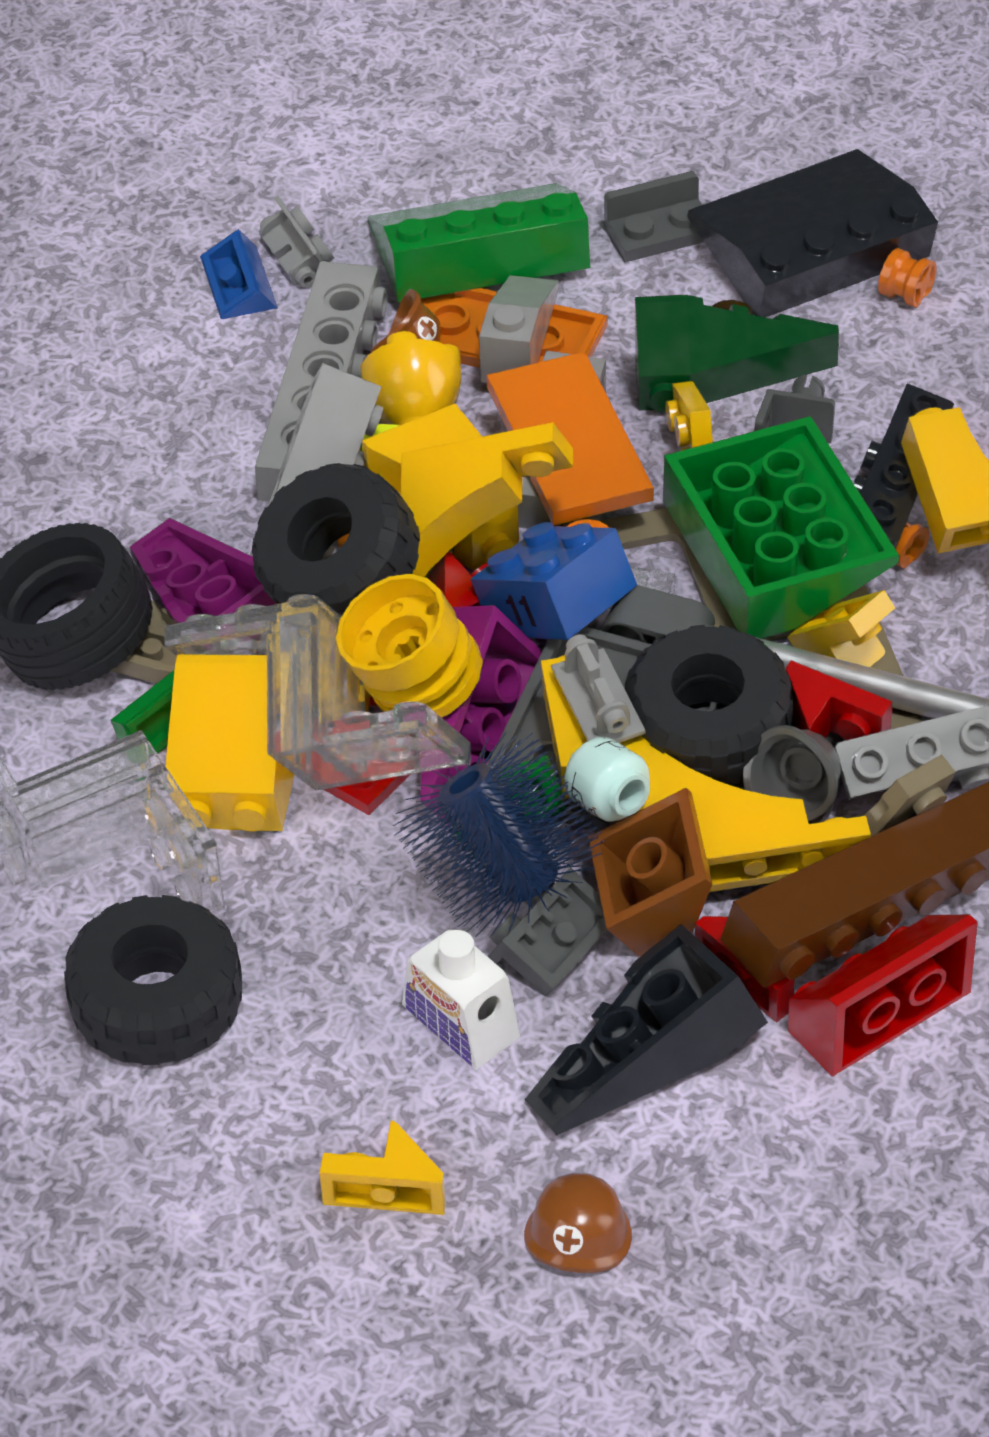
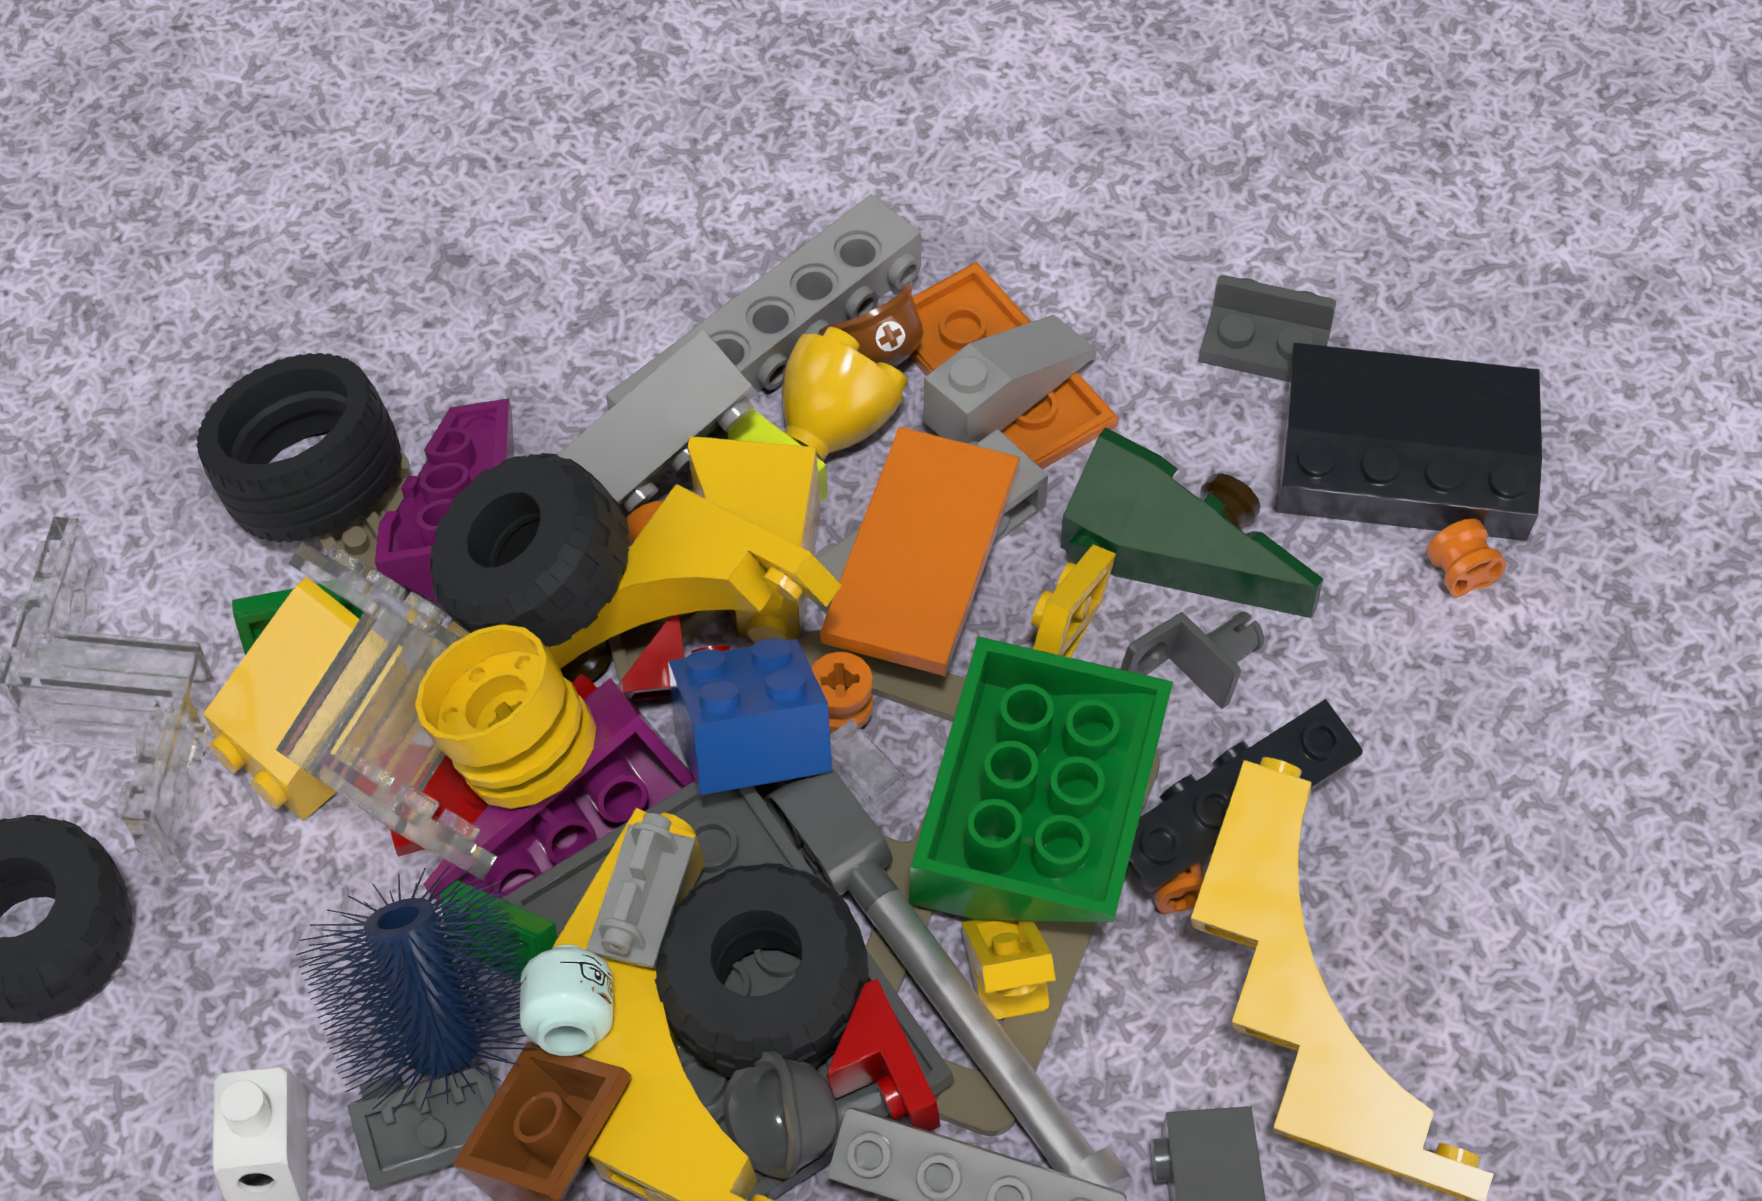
camera: 35 degrees right, 10 degrees up
(237, 277) = (808, 163): blue slope -> none
(288, 241) = (889, 157): light grey hinge -> none
(482, 240) = (1060, 253): green slope -> none

